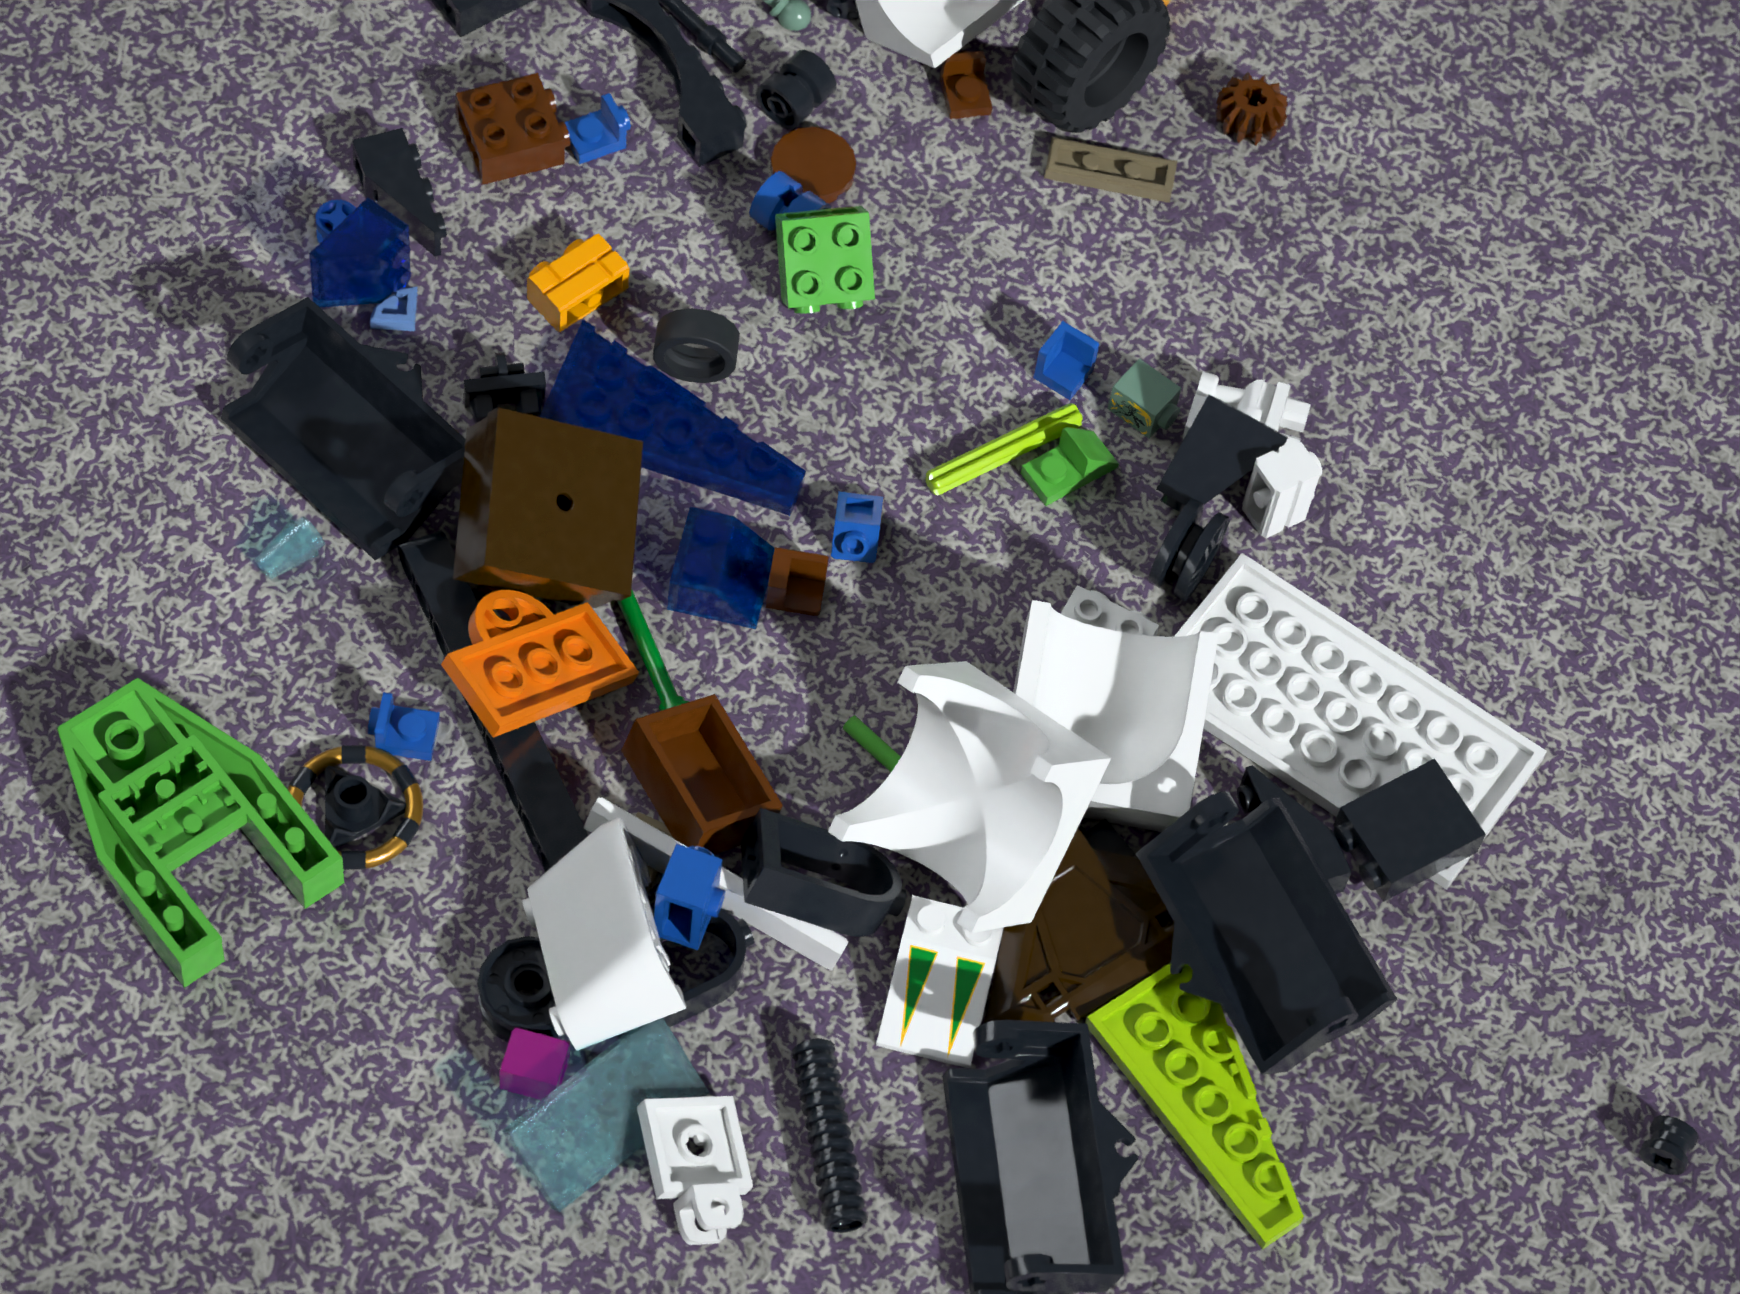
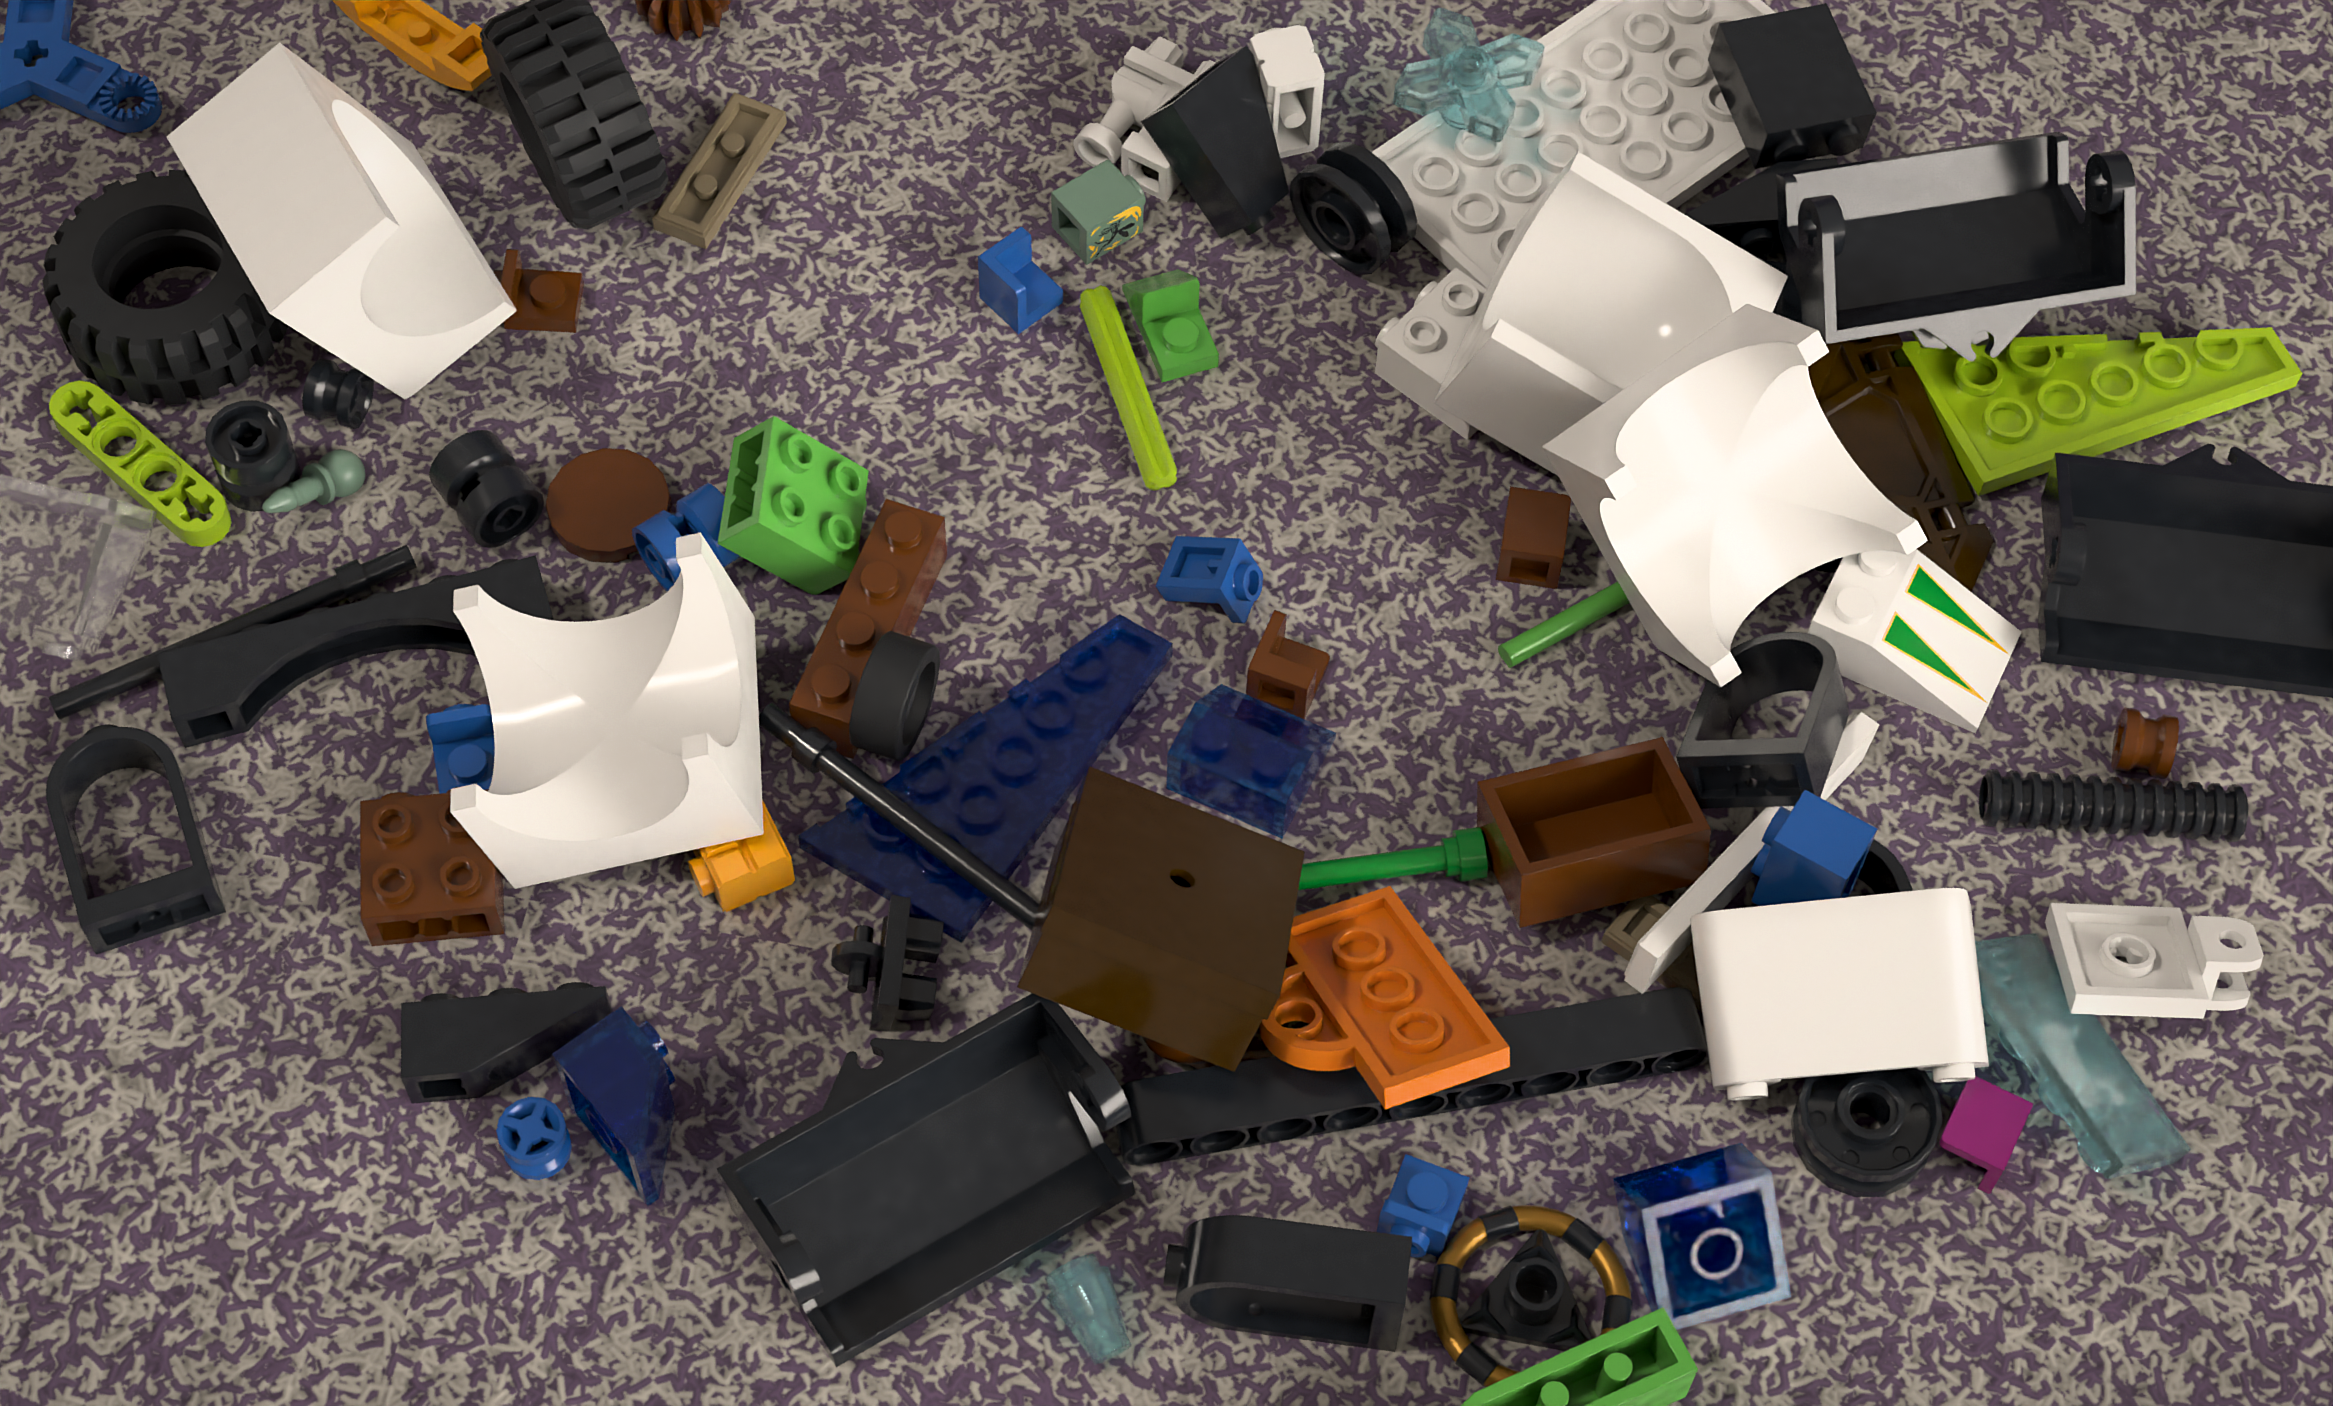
camera: 70 degrees left, 0 degrees up
(322, 652) = (1292, 1279): none -> black window
(397, 311) = (702, 1088): medium blue tile -> none
(417, 897) = (1704, 1235): none -> clear blue slope
(622, 195) = (617, 729): none -> white piece
(642, 315) = (818, 753): none -> black bar
(769, 325) = (879, 597): none -> reddish brown brick
(888, 1152) = (2145, 743): none -> reddish brown wheel
(1323, 597) = (1468, 79): none -> clear light blue plant

